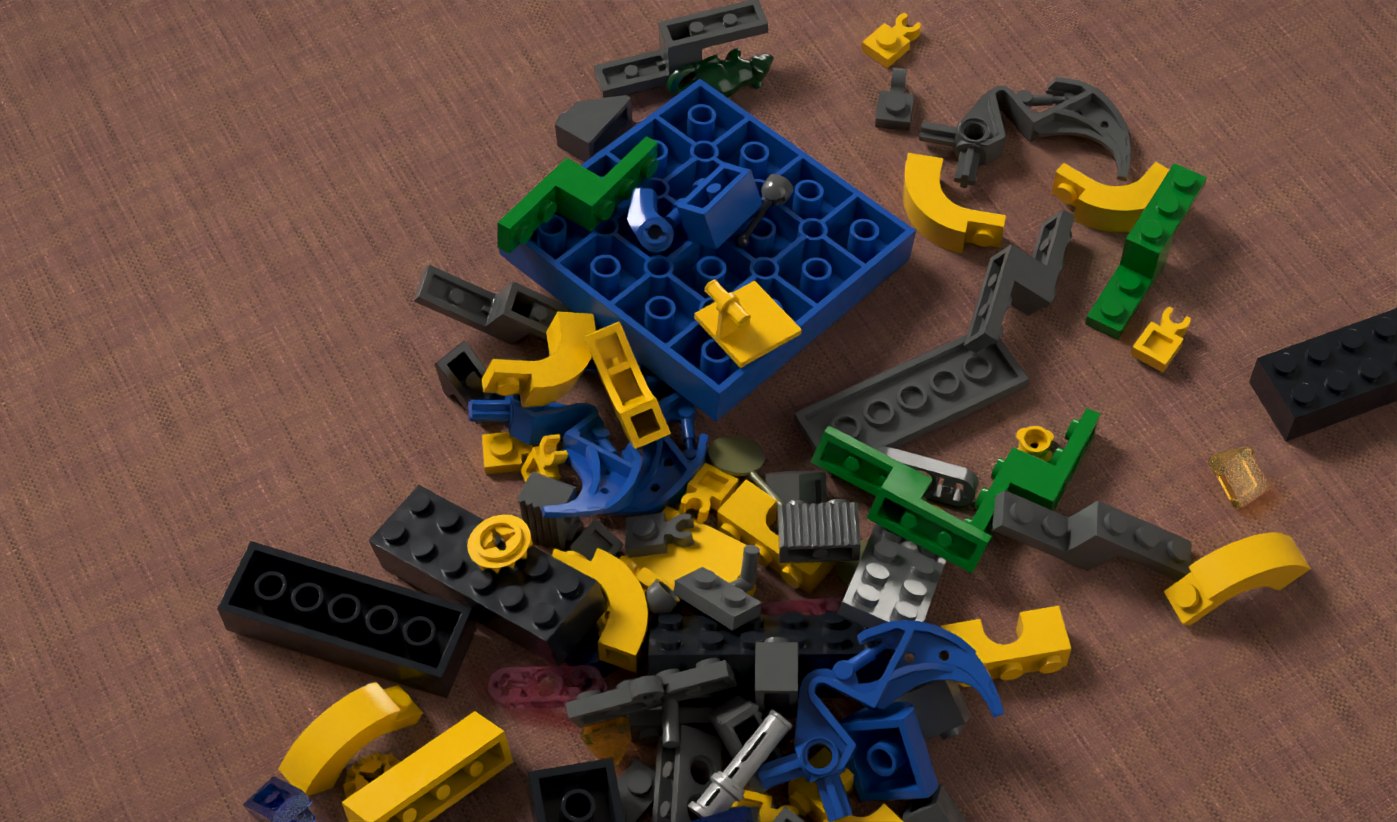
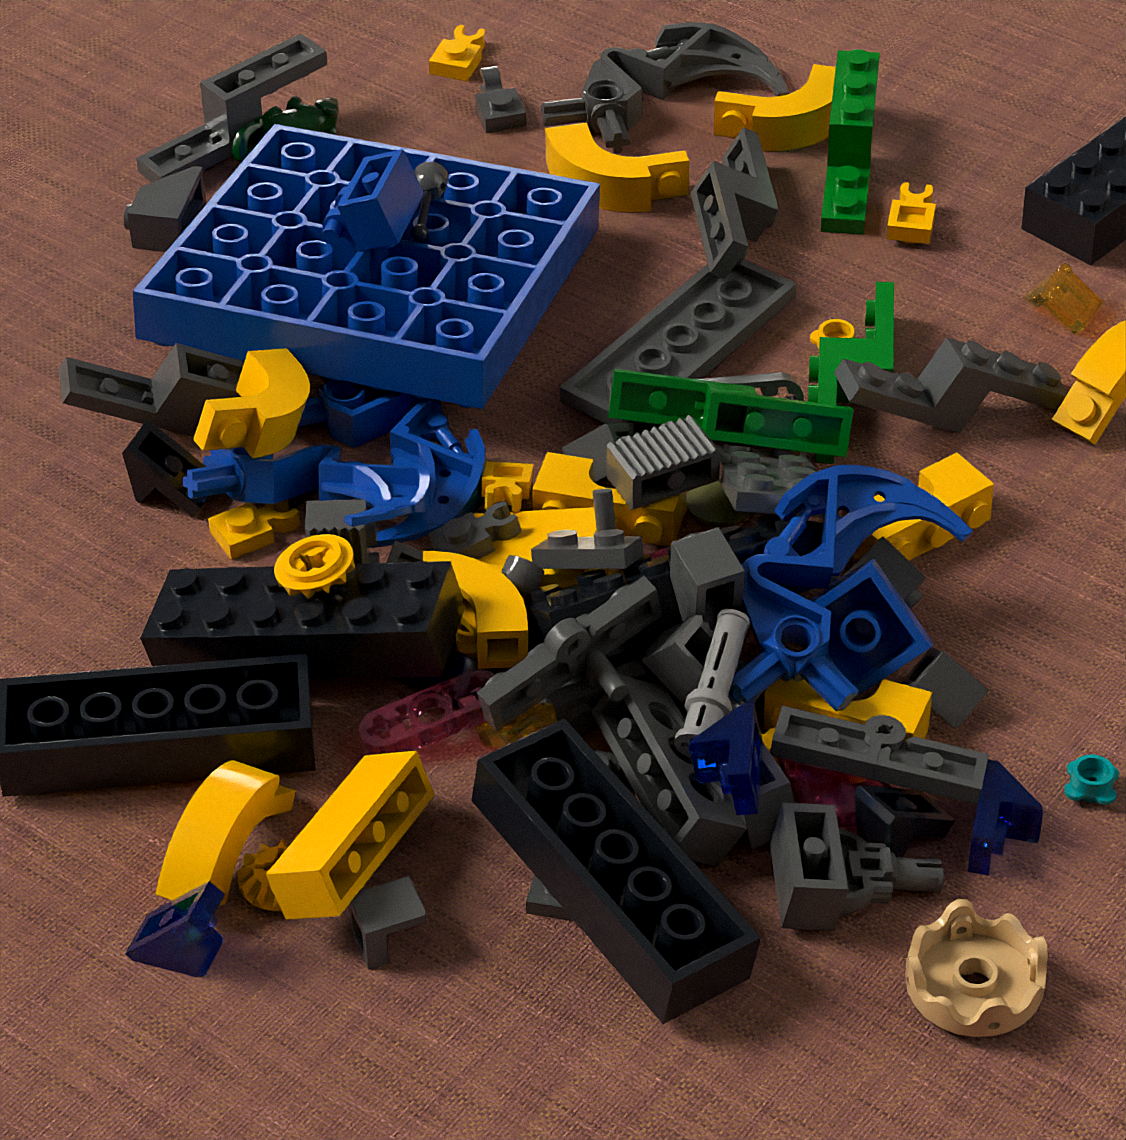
camera: 25 degrees left, 15 degrees down
(545, 458) = (291, 519): yellow plate -> none
(577, 195) = (211, 236): green bracket -> none
(626, 386) = (362, 407): yellow arch -> none
(649, 227) = (312, 244): blue arm -> none
(740, 458) = (523, 448): olive piece -> none
(745, 322) = (472, 287): yellow plate -> none

